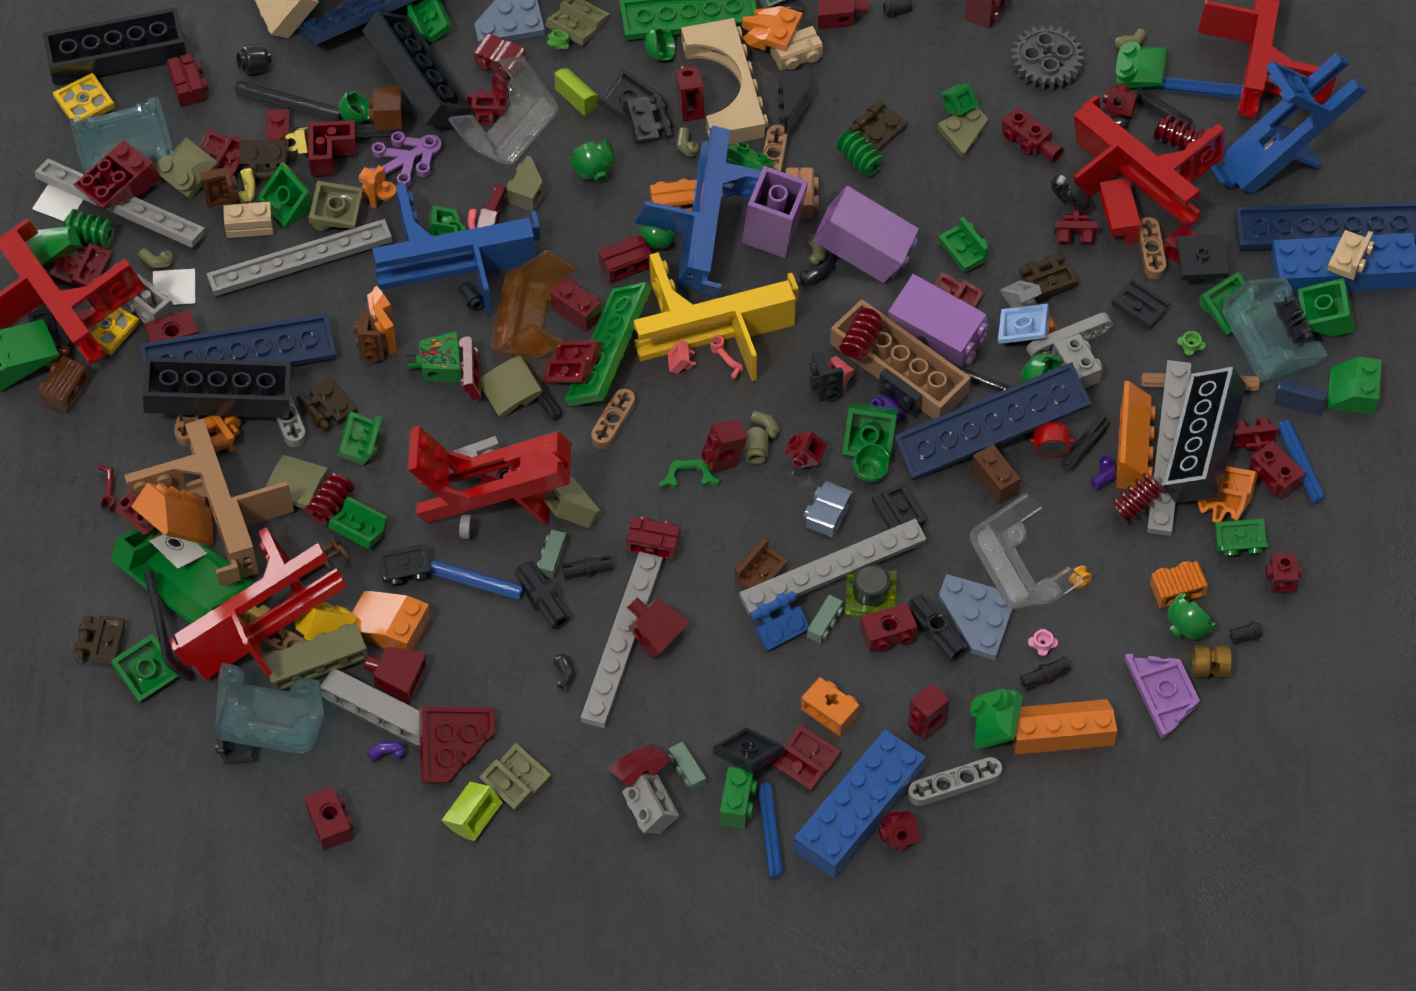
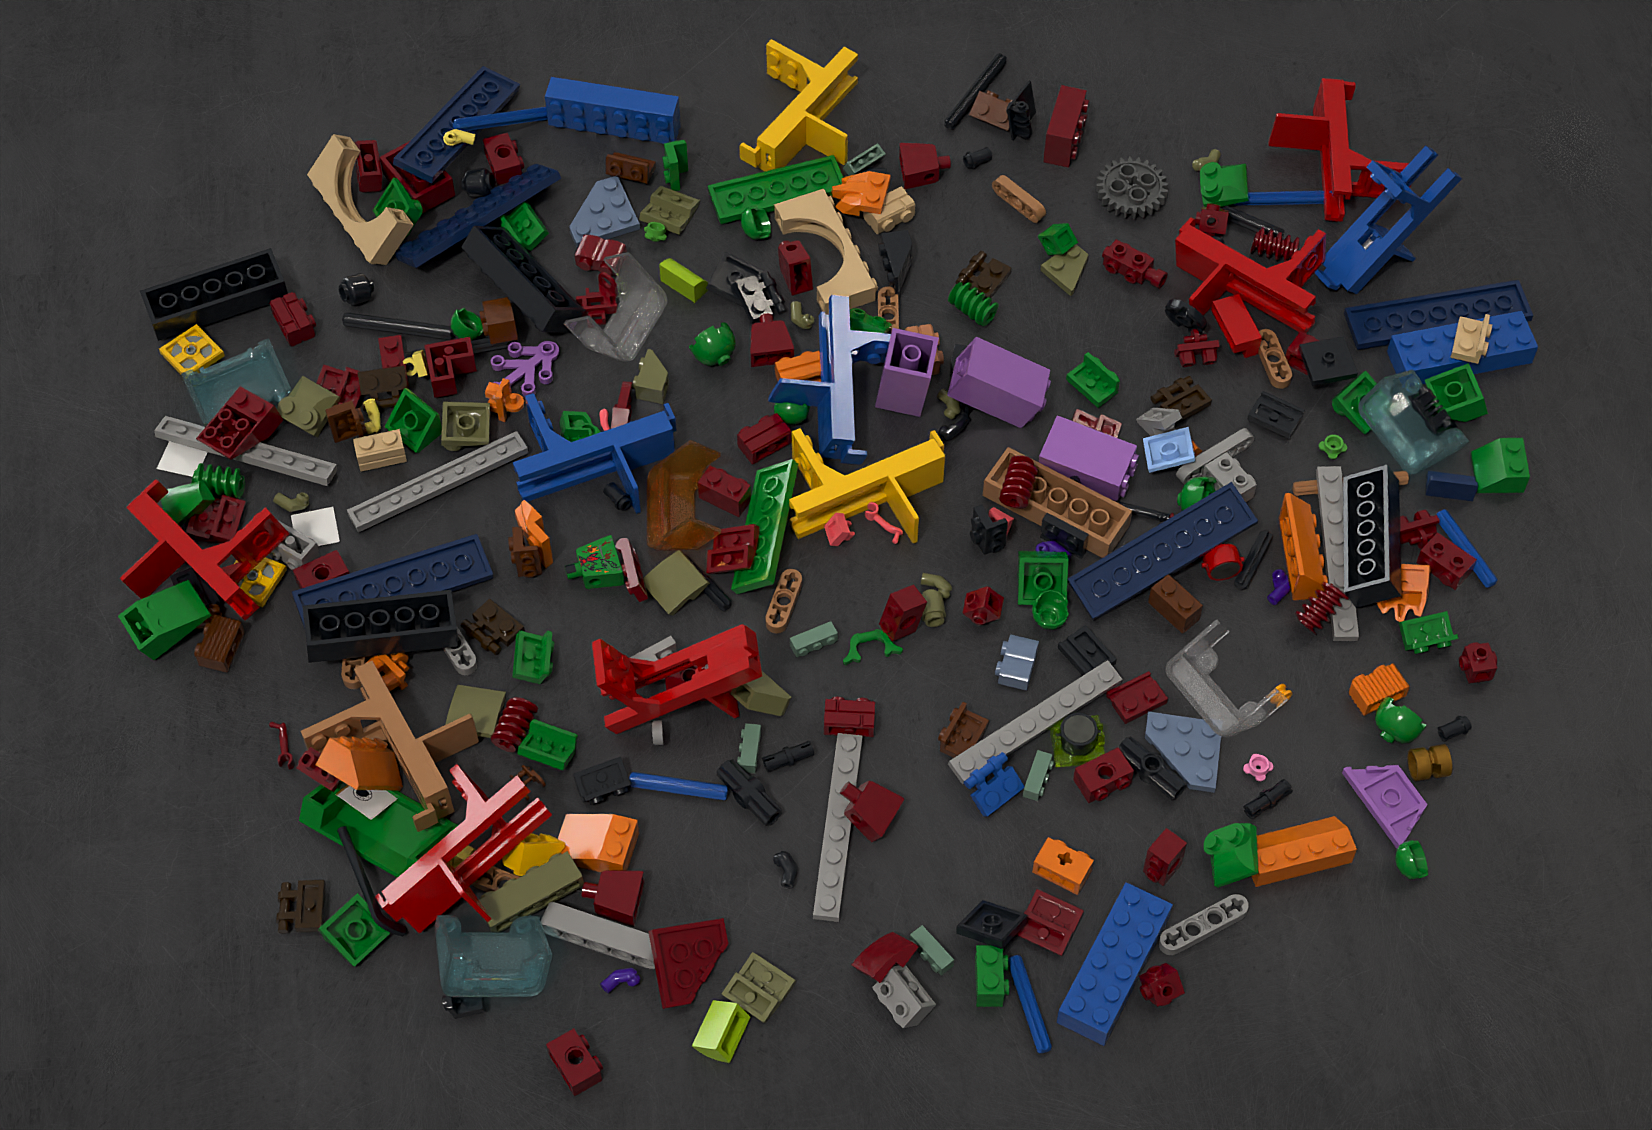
camera: 10 degrees left, 0 degrees up
(634, 459) = (813, 639): none -> sand green piece
(649, 164) = (769, 341): none -> dark red torso
(930, 53) = (1019, 198): none -> medium nougat beam
(939, 559) = (1137, 697): none -> dark red plate
(1171, 750) = (1411, 860): none -> green hair

